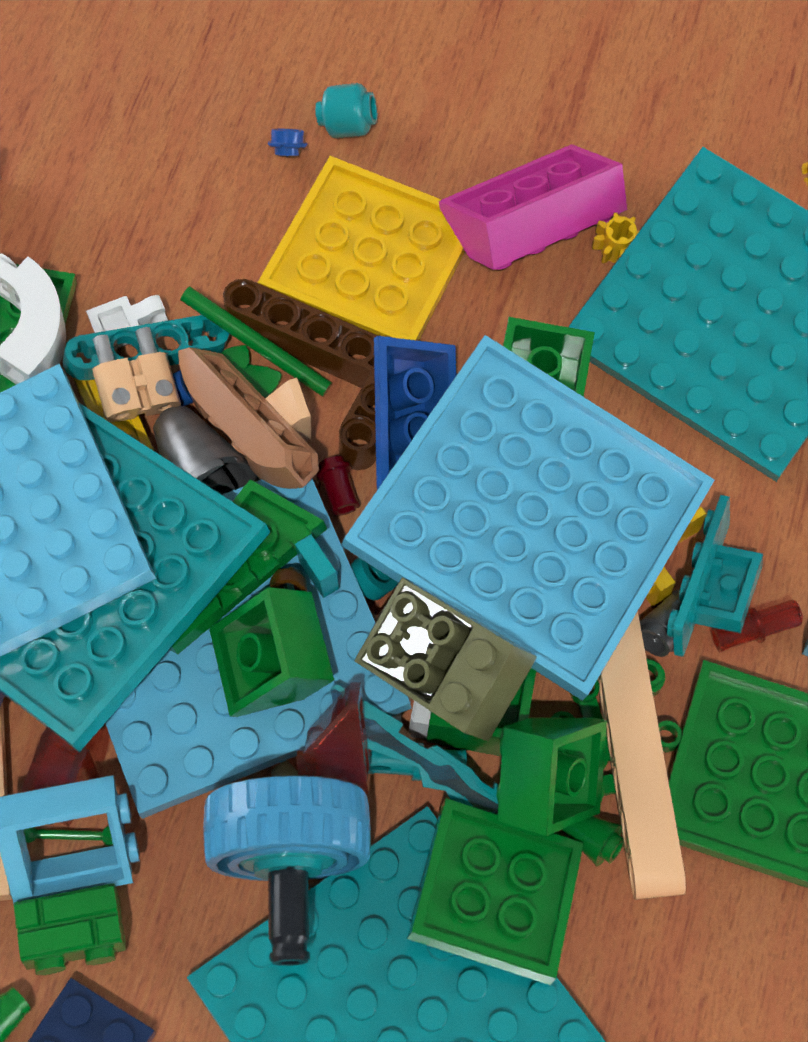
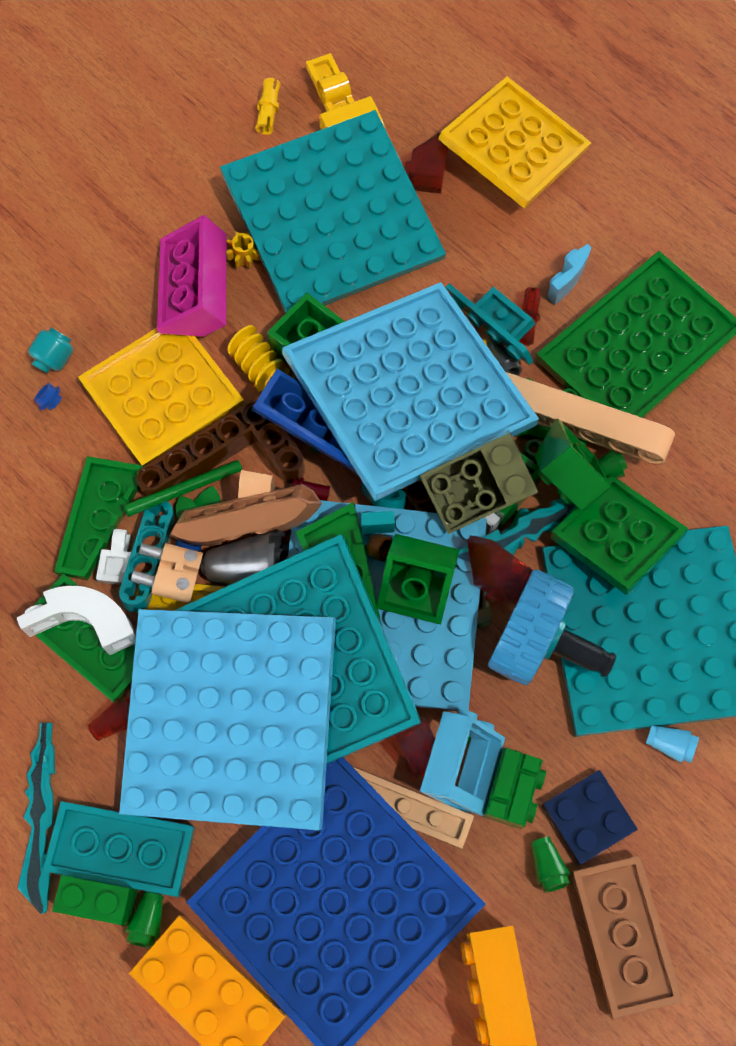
camera: 55 degrees left, 5 degrees up
(167, 267) = (95, 514): none -> green wing
(480, 314) = (254, 356): none -> yellow piece

